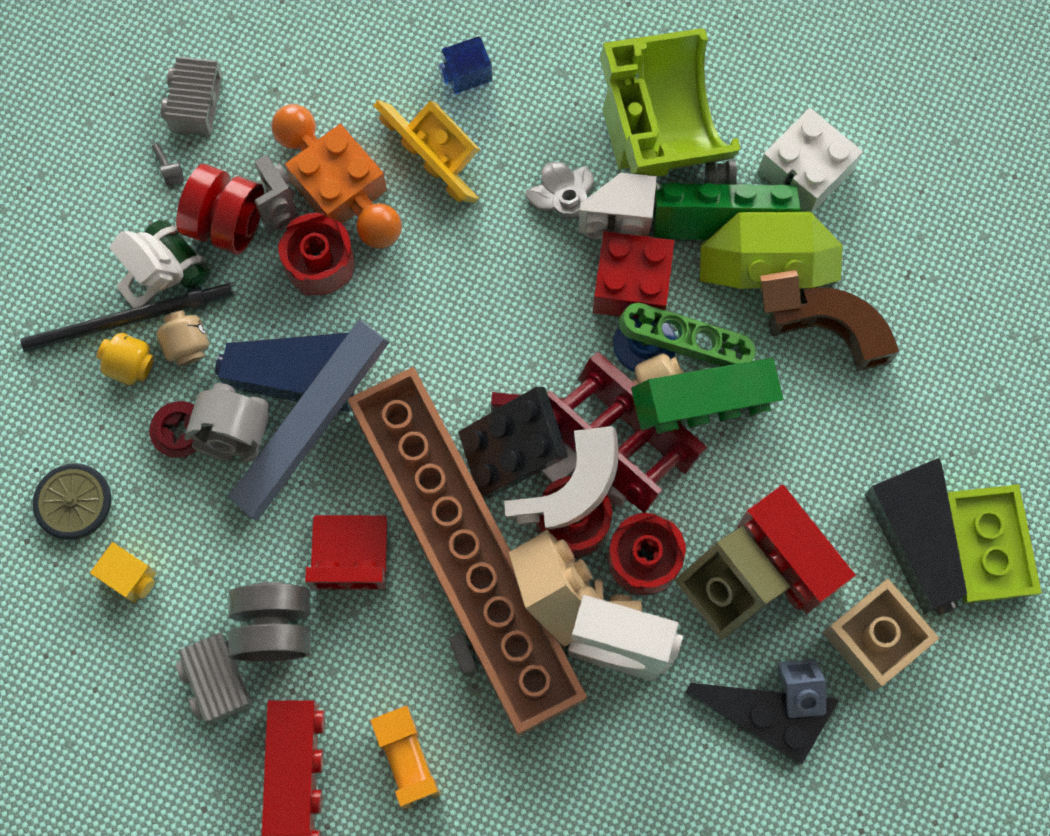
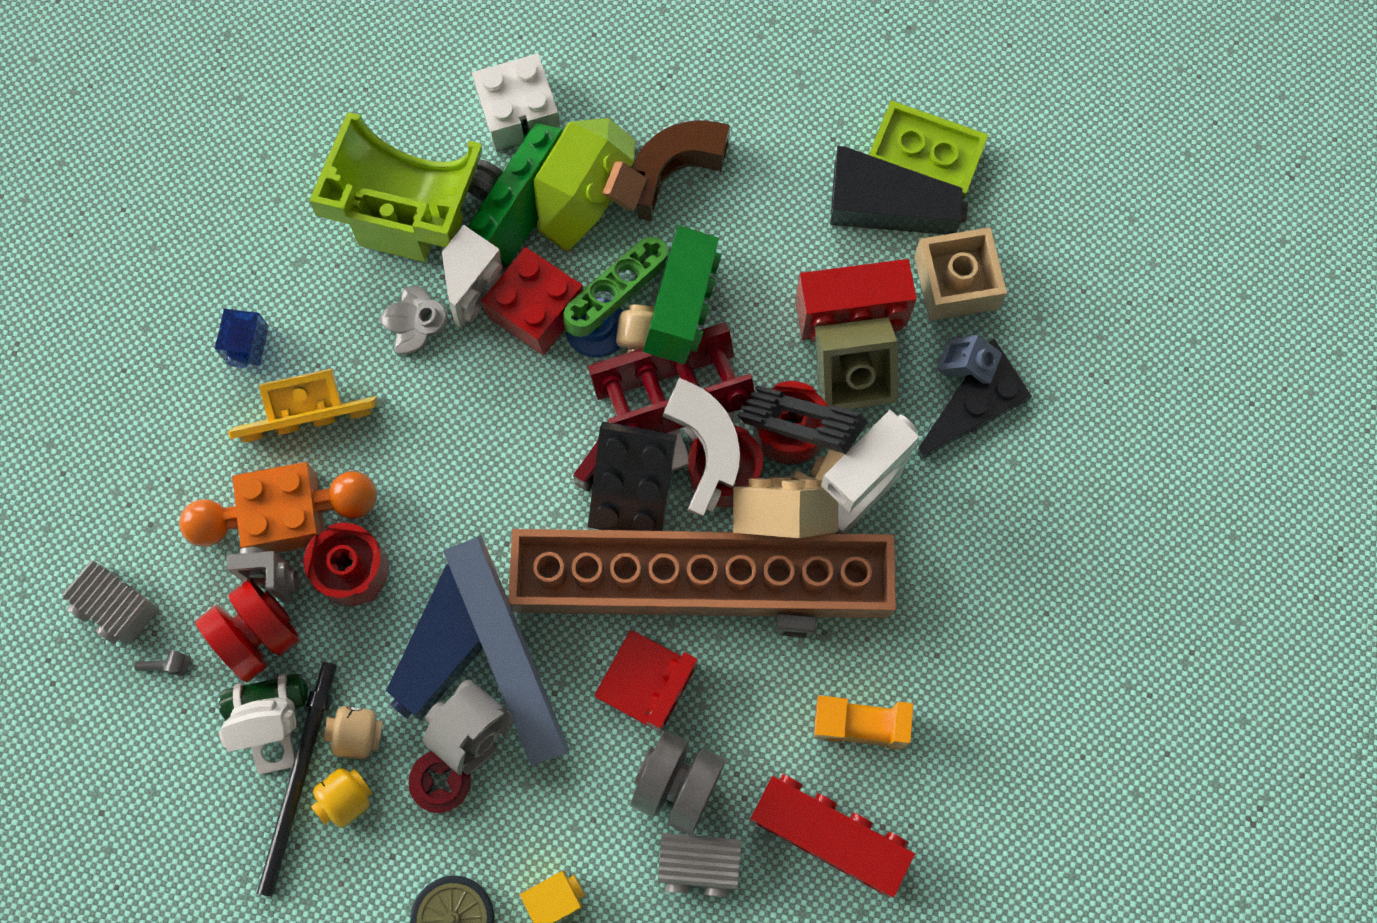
camera: 60 degrees left, 0 degrees up
(635, 588) = (839, 429): none -> black container

